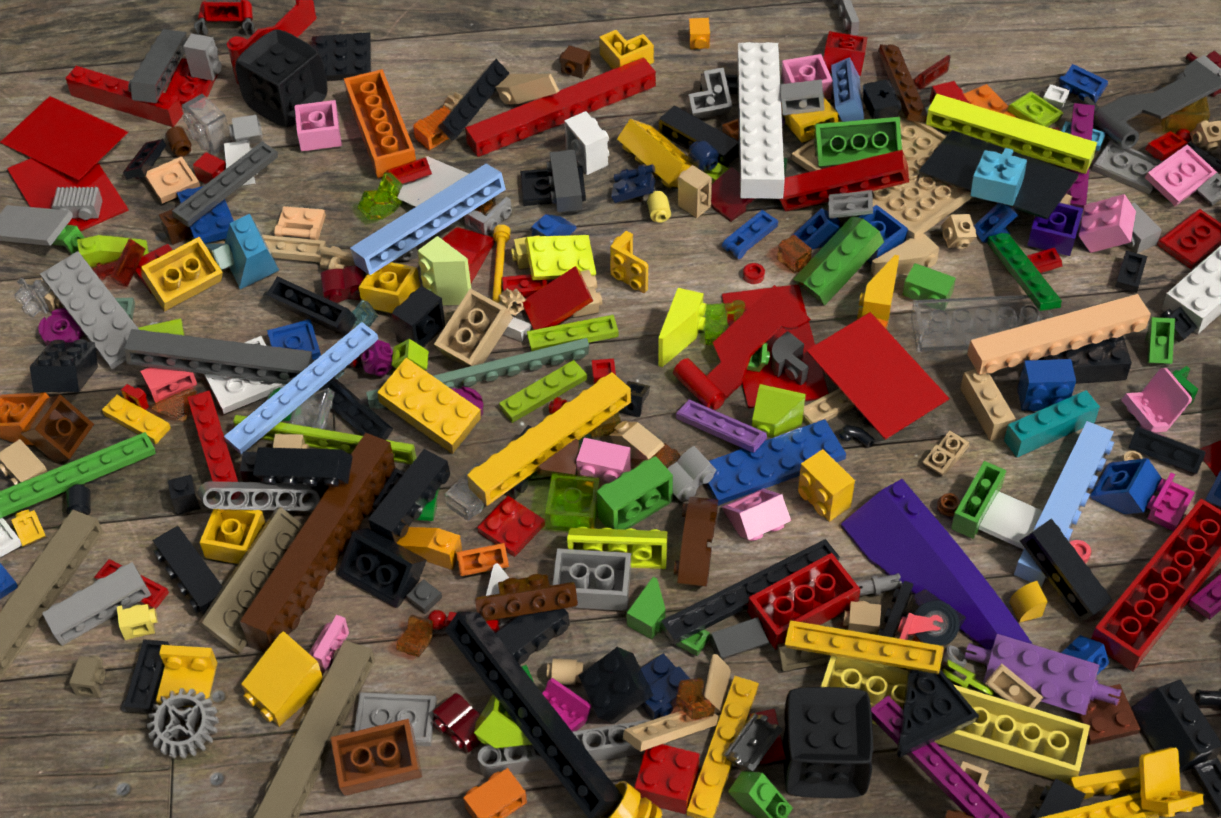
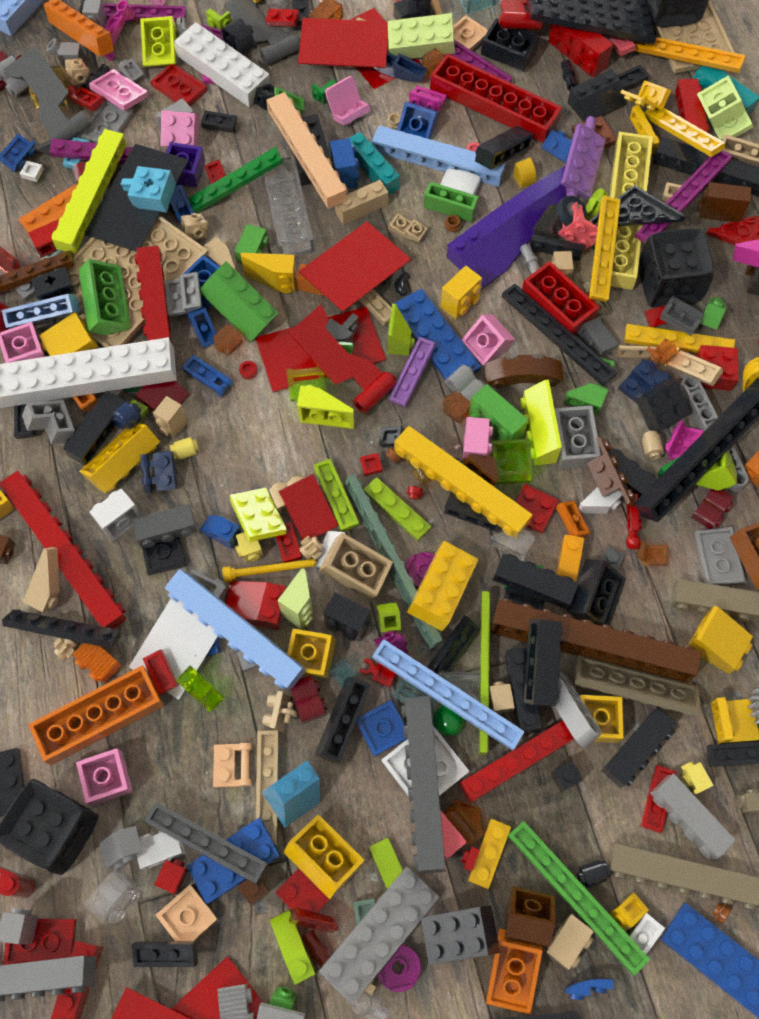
camera: 100 degrees left, 15 degrees up
(178, 141) = (130, 928): reddish brown brick -> none
(221, 254) = (299, 819): sand green slope -> none
(328, 641) = (678, 617): bright pink bracket -> none
(625, 265) = (259, 465): yellow bracket -> none
(638, 438) = (446, 423): tan slope -> none
(802, 97) = (57, 337): light grey brick -> none
(1012, 687) = (599, 176): tan slope -> none
(1035, 110) = (51, 183): lime tile -> none
(1167, 449) = (382, 100): black plate -> none

